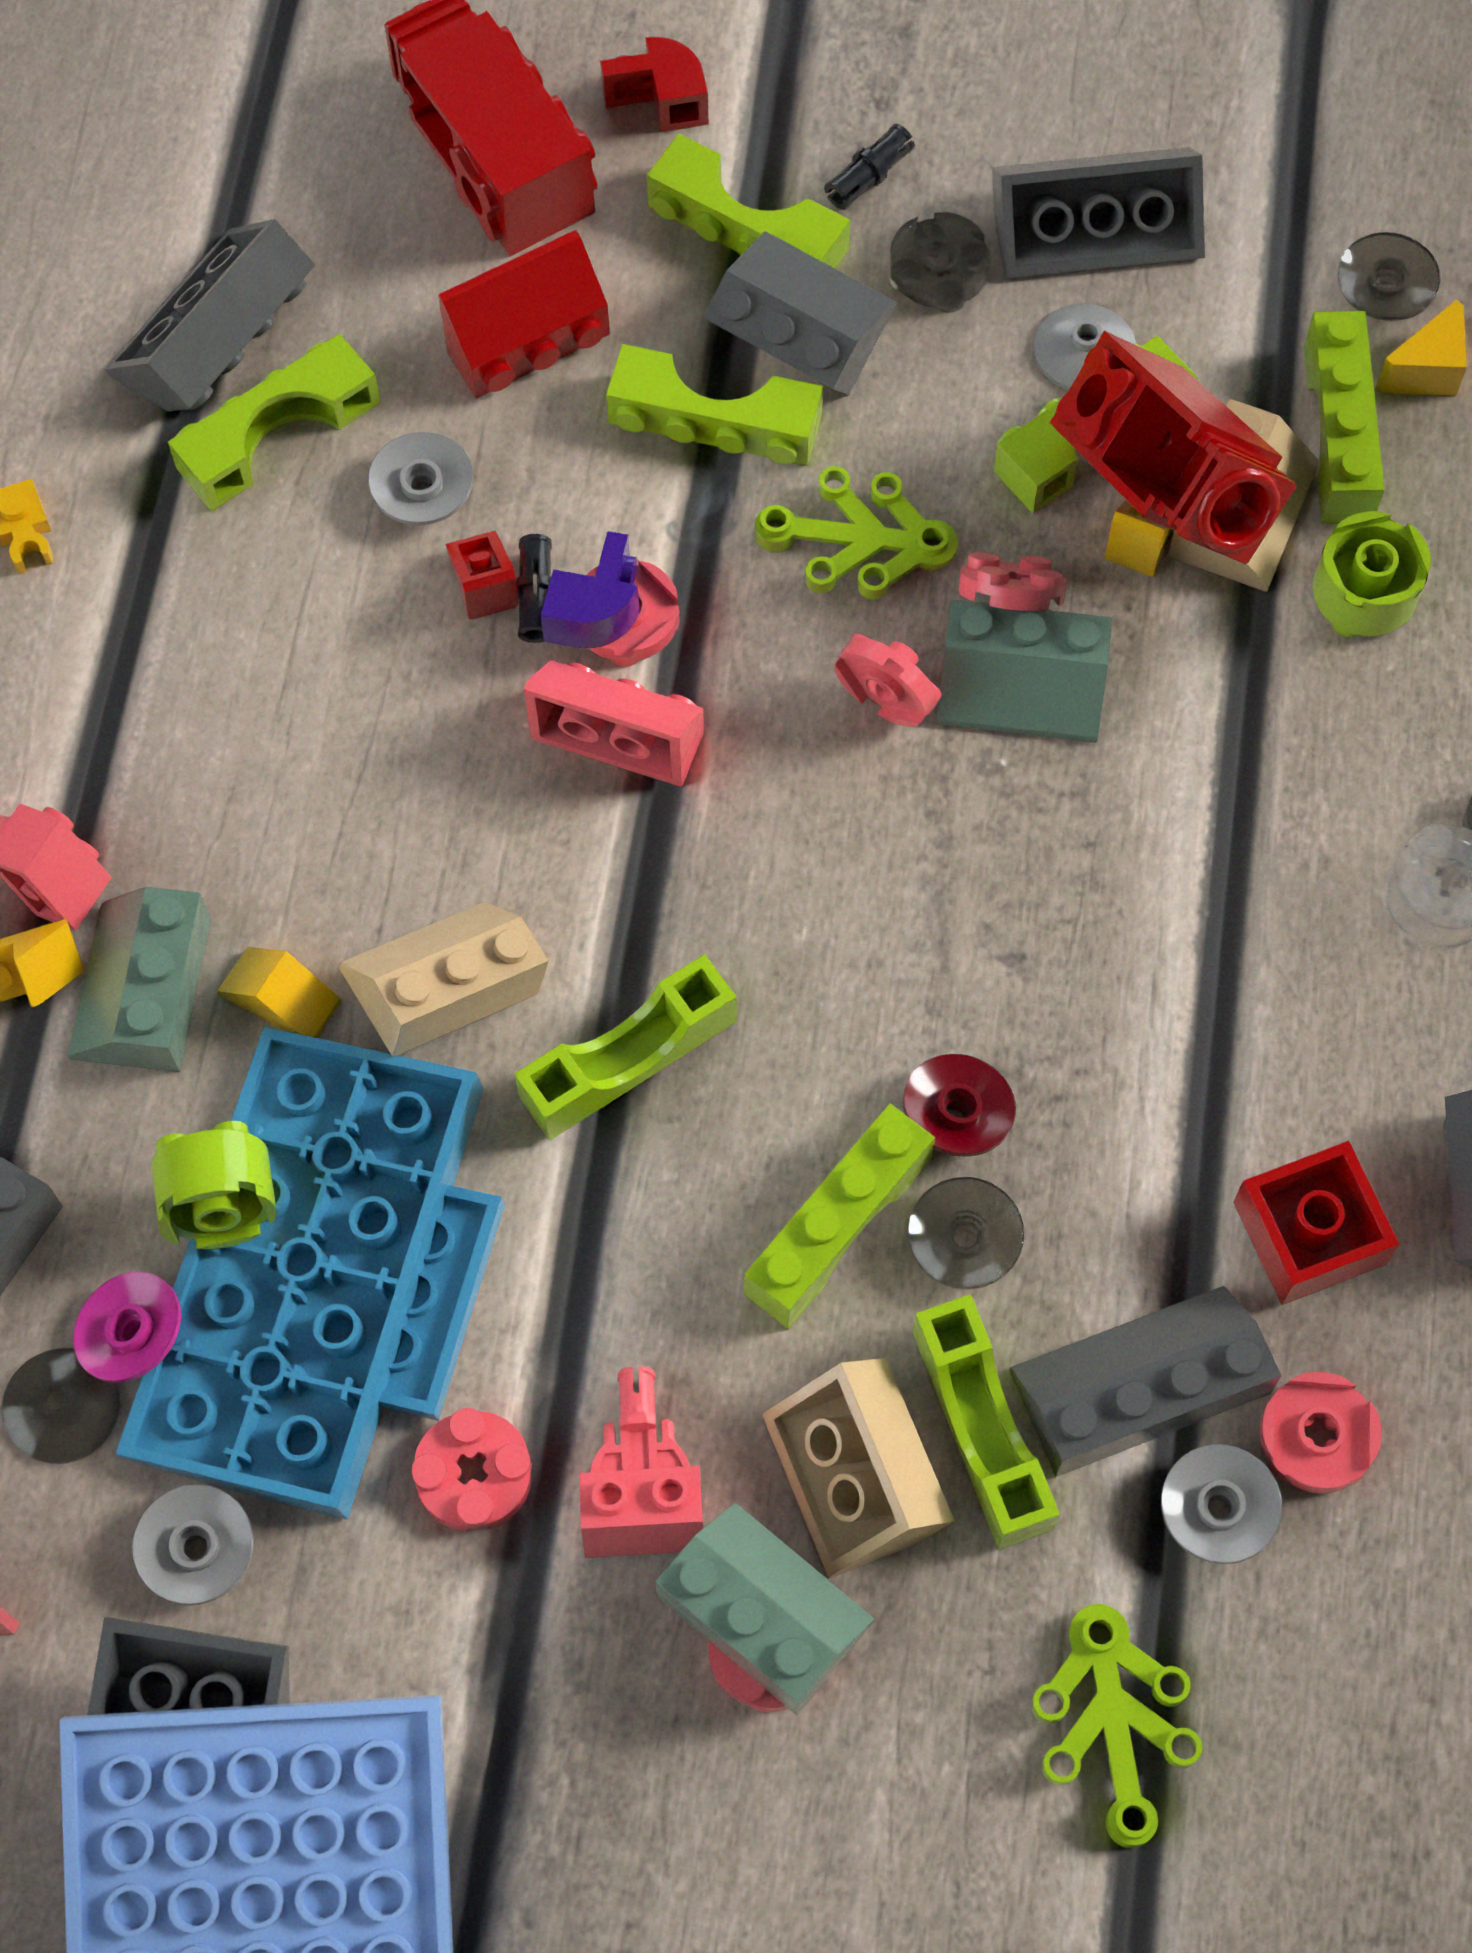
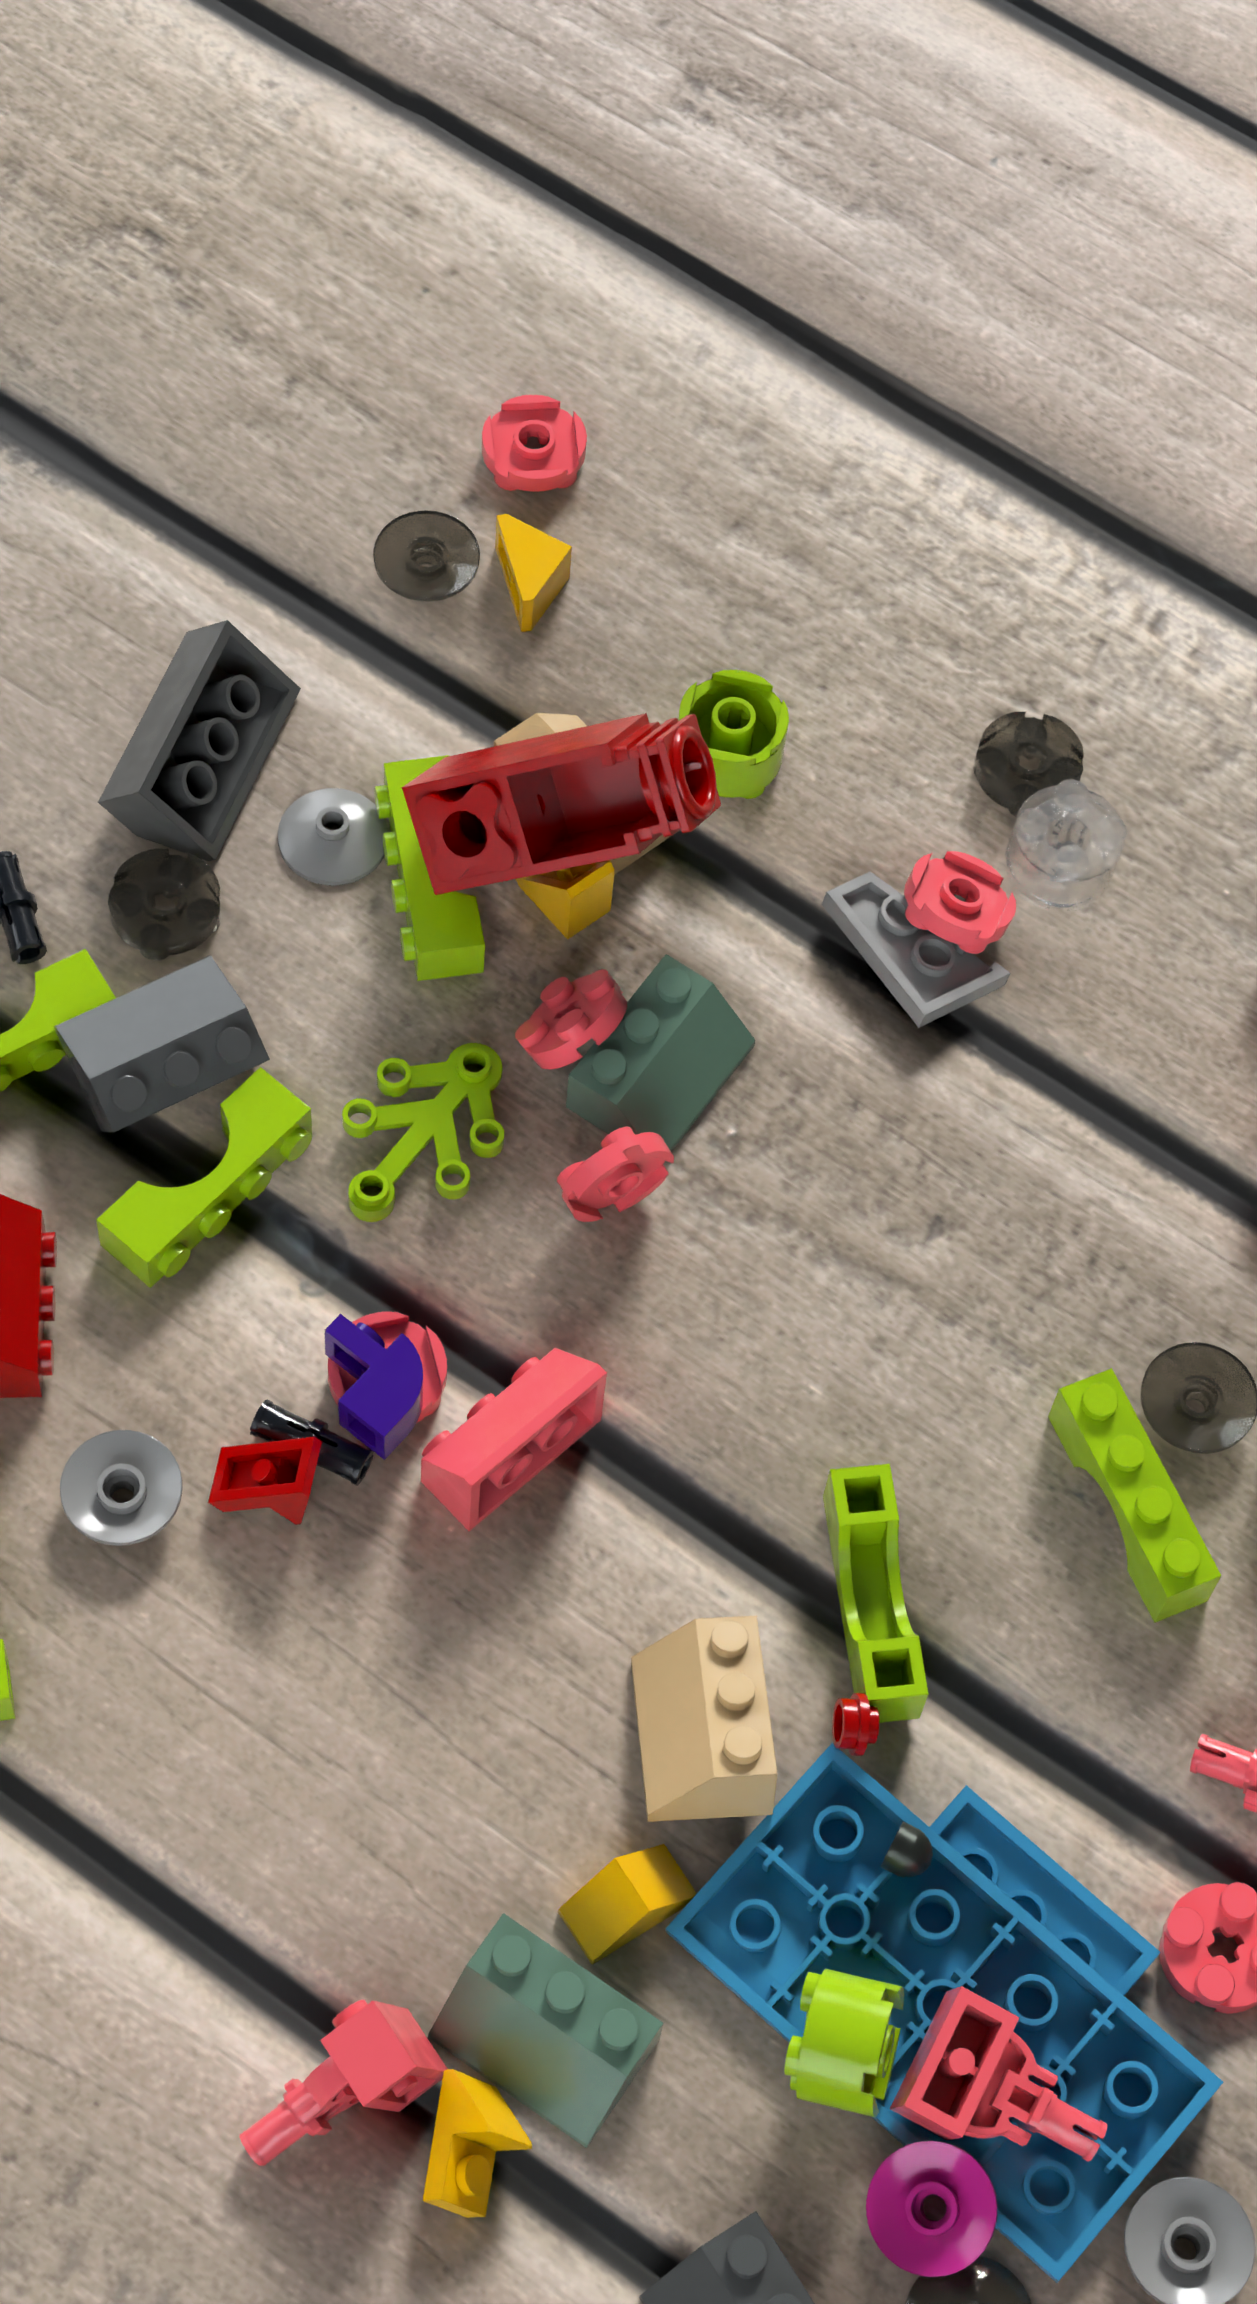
camera: 70 degrees left, 5 degrees down
(235, 1310) = (976, 2078): none -> coral brick
(403, 1165) = (909, 1852): none -> pearl dark grey hinge
(494, 1078) = (855, 1724): none -> red plate
(965, 1086) = (1072, 1321): dark red dish -> none
(1259, 816) = (914, 964): none -> light grey wing
(1306, 838) = (935, 908): none -> coral plate
(1350, 451) = (500, 641): lime arch -> none

